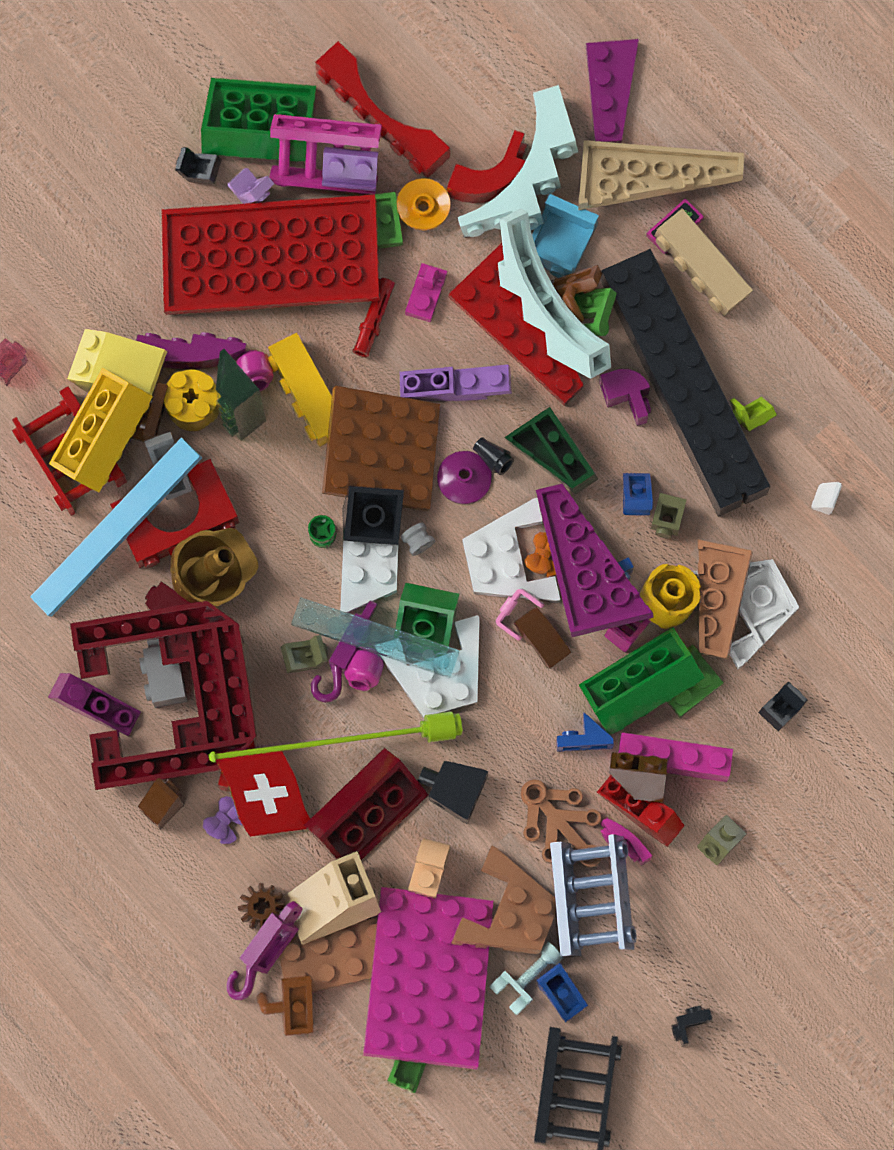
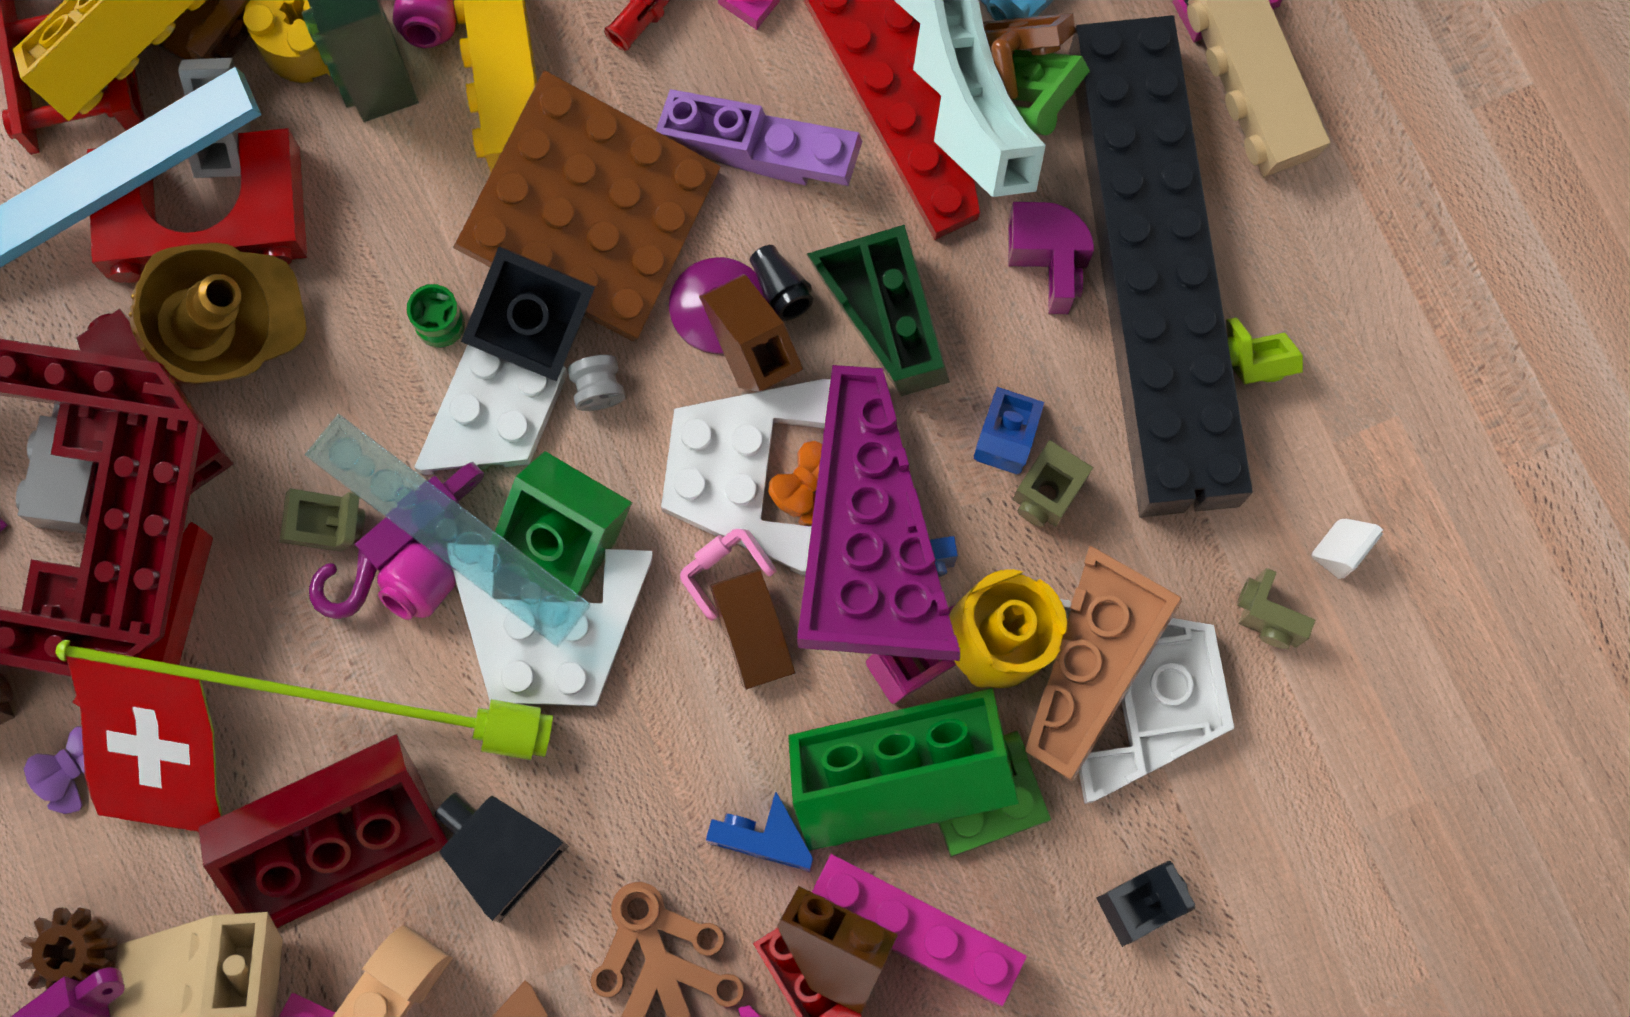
camera: 15 degrees right, 0 degrees up
(489, 488) = (750, 335): none -> reddish brown slope
(804, 548) = (1276, 623): none -> olive bracket

